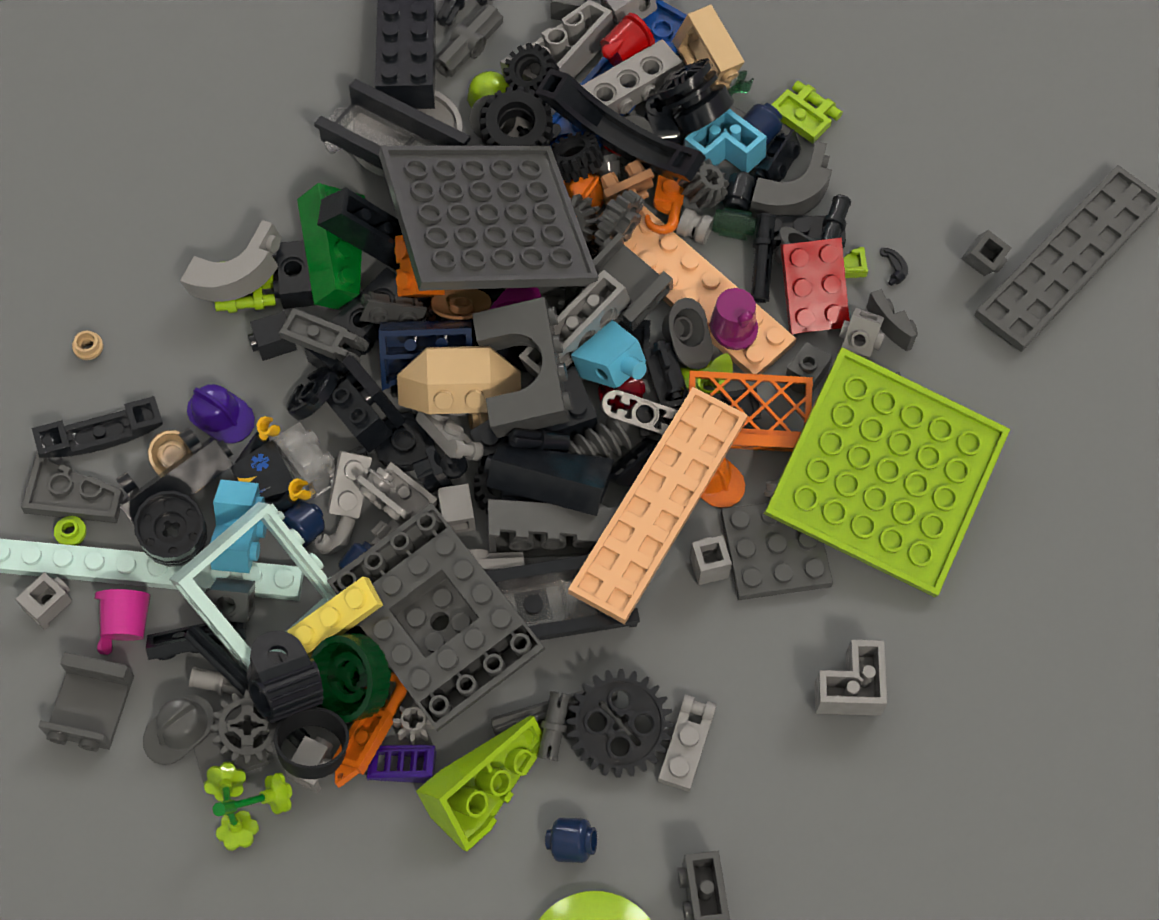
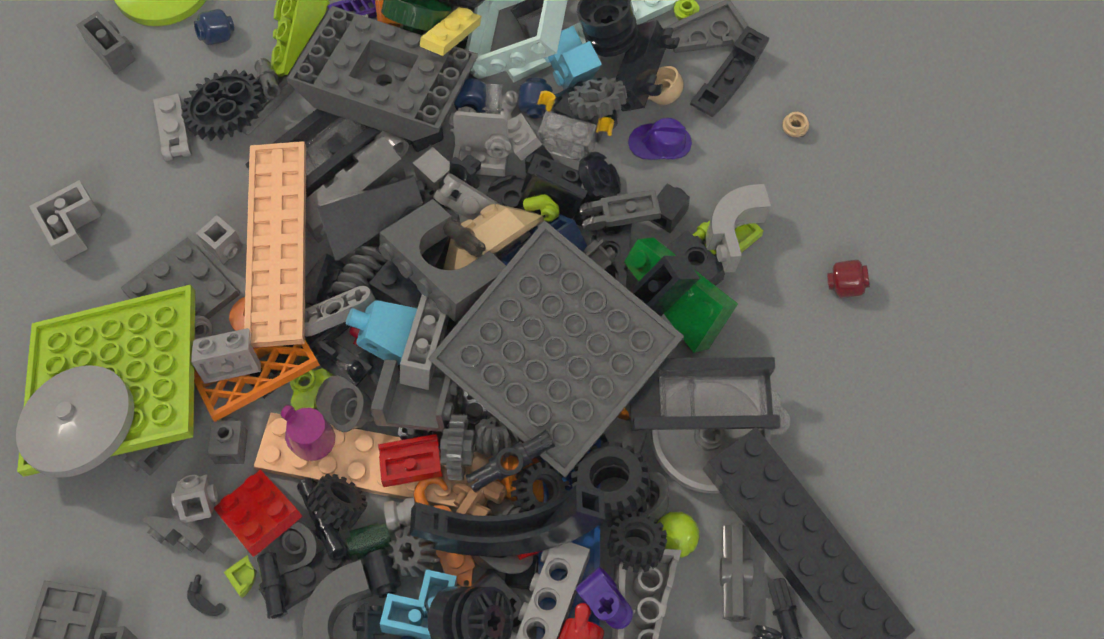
camera: 150 degrees right, 0 degrees up
(181, 182) = (849, 278): none -> dark red head
(254, 438) = (597, 98): none -> dark grey gear
(351, 532) = (493, 101): none -> clear axle
(387, 383) = (543, 203): none -> lime arm
(489, 365) = (464, 238): none -> clear smoke axle
(586, 55) = (605, 599): none -> dark purple piece
(586, 173) = (495, 468): none -> black pin
(664, 248) = (410, 460): none -> red plate
(754, 256) = (337, 501): none -> black tyre
(770, 419) = (225, 356): none -> light grey bracket
(938, 435) = (75, 421): none -> light grey dish

